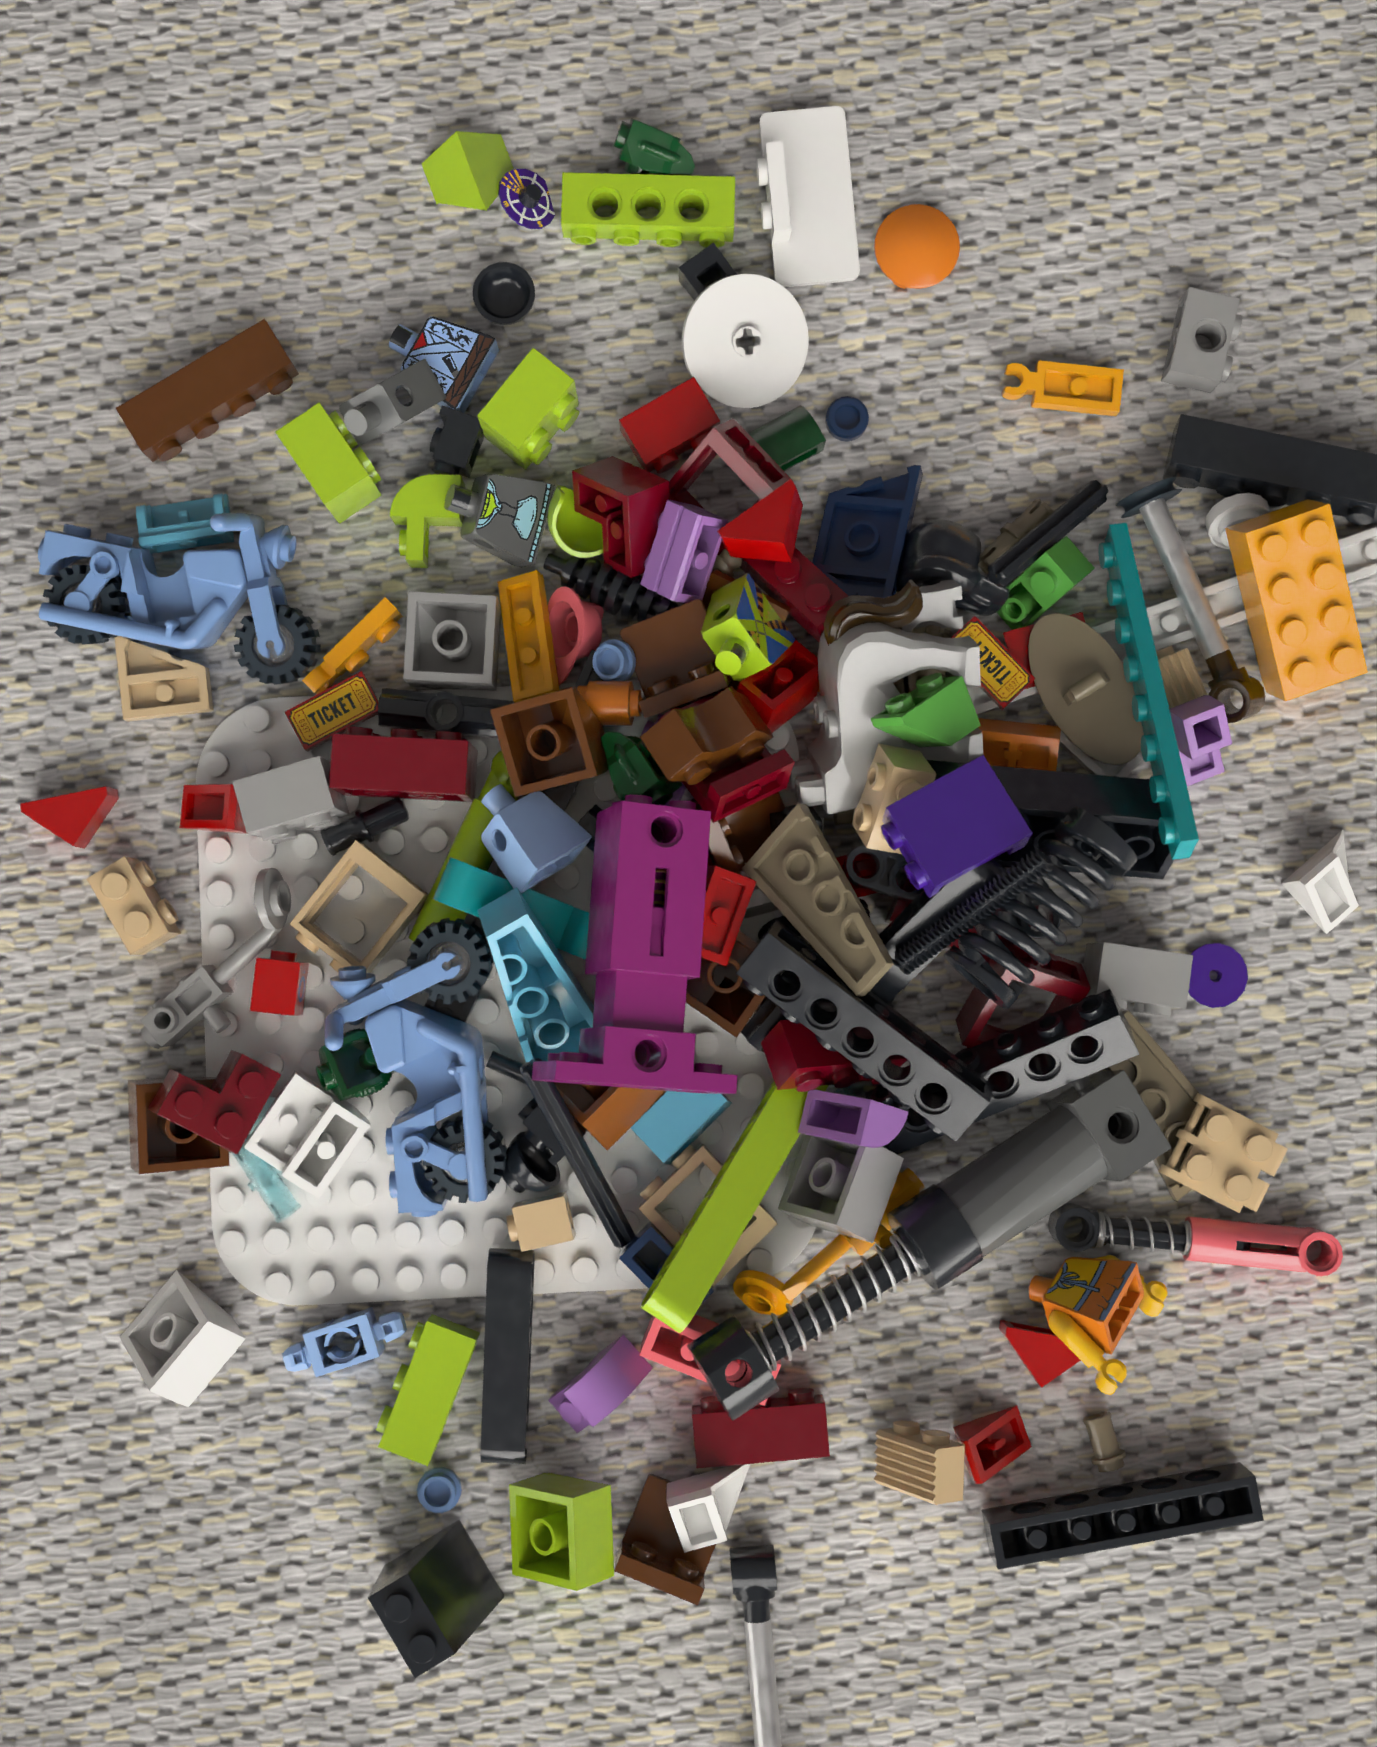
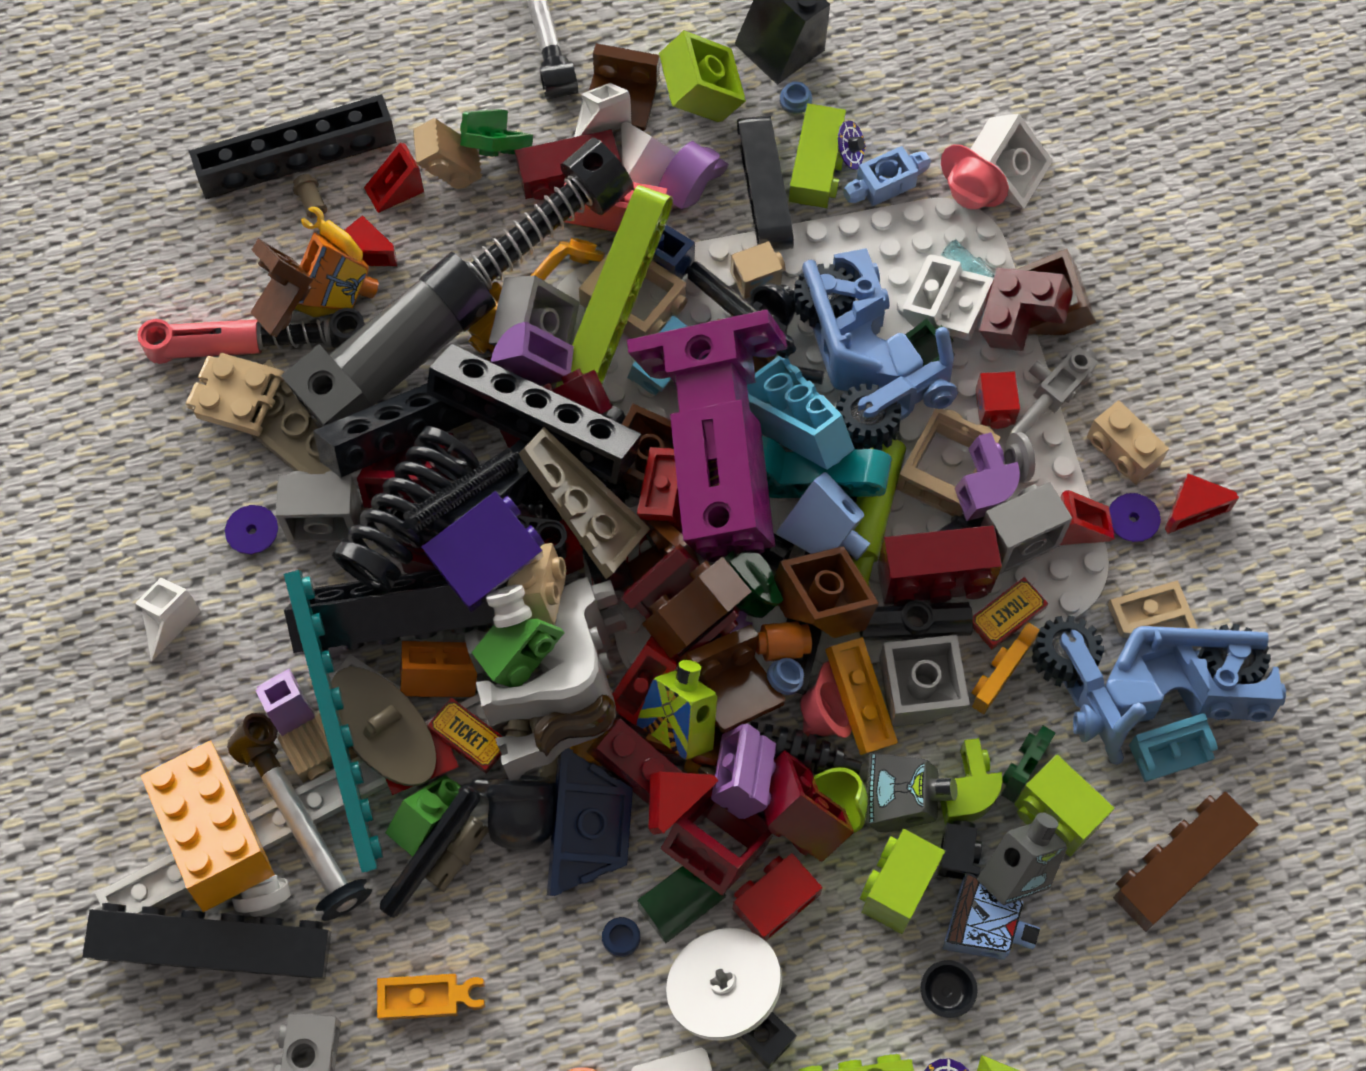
camera: 170 degrees right, 20 degrees down
(137, 808) = (1140, 508): none -> dark purple piece
(236, 1309) = (972, 178): none -> coral piece
(316, 848) = (992, 481): none -> medium lavender brick
(353, 527) = (1033, 749): none -> dark green wing
(381, 1397) = (851, 144): none -> piece
(655, 1425) = (644, 155): none -> slope
(856, 1483) = (489, 133): none -> green bracket
(933, 751) = (509, 606): none -> white wheel
(1155, 1286) = (284, 291): none -> reddish brown bracket

